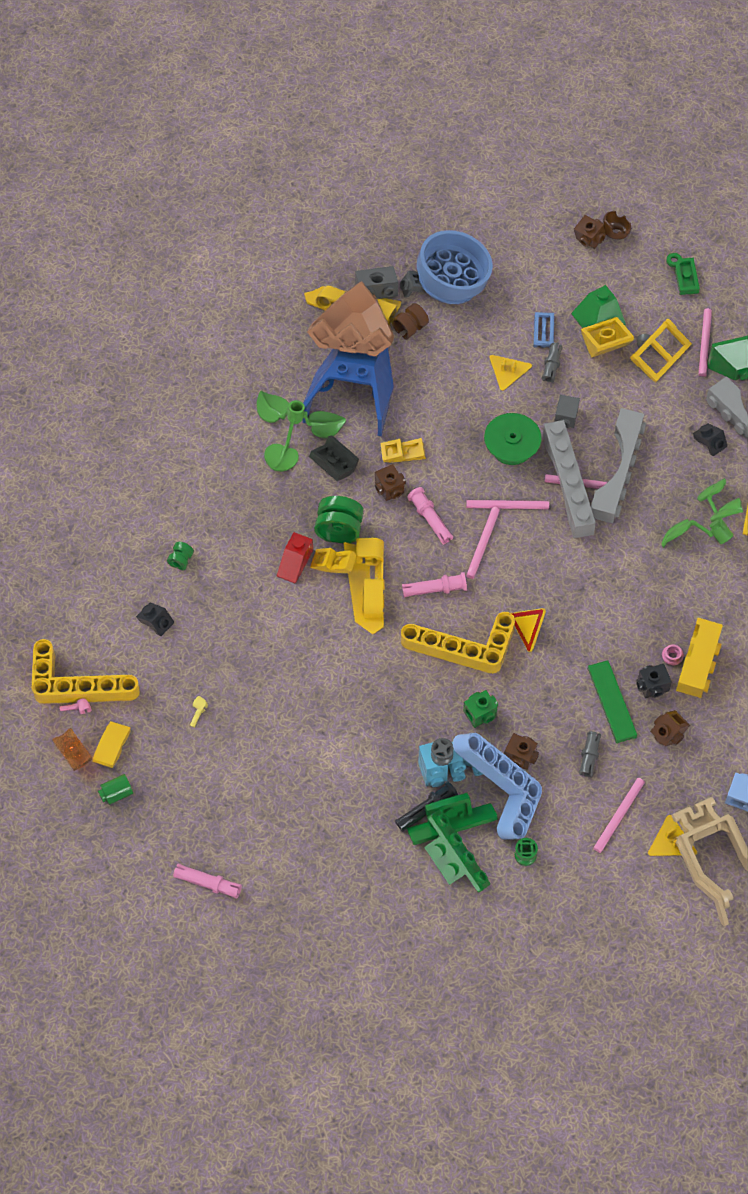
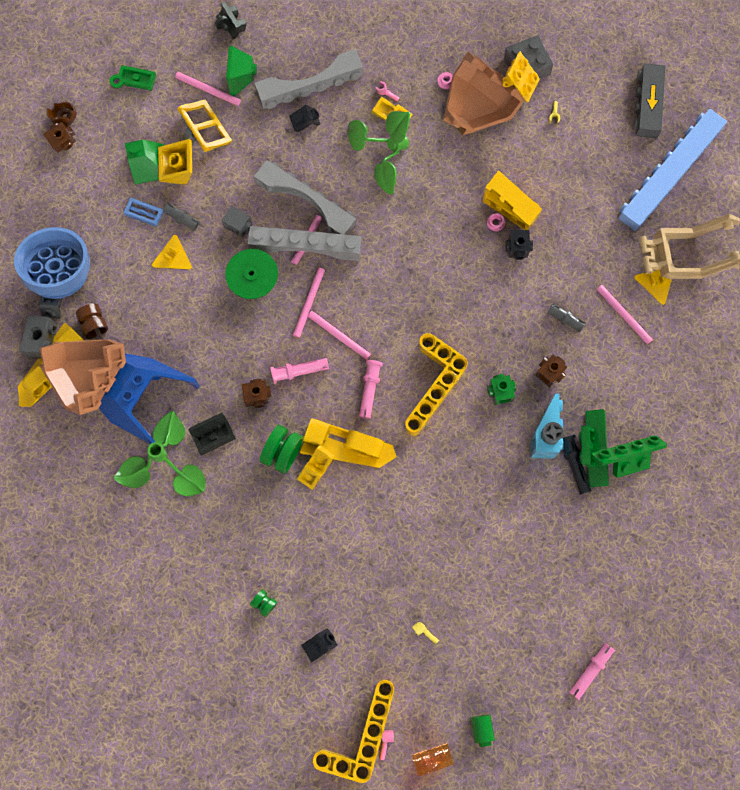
camera: 70 degrees left, 15 degrees up
(111, 744) = (435, 721): yellow slope -> none
(295, 557) = (302, 500): red slope -> none
(402, 451) = (223, 372): yellow slope -> none
(522, 788) = (596, 385): light blue beam -> none
(526, 856) = (636, 399): green wheel -> none
(528, 626) = (435, 324): piece -> none
(612, 701) = (522, 283): green tile -> none
(669, 728) = (566, 247): reddish brown brick -> none

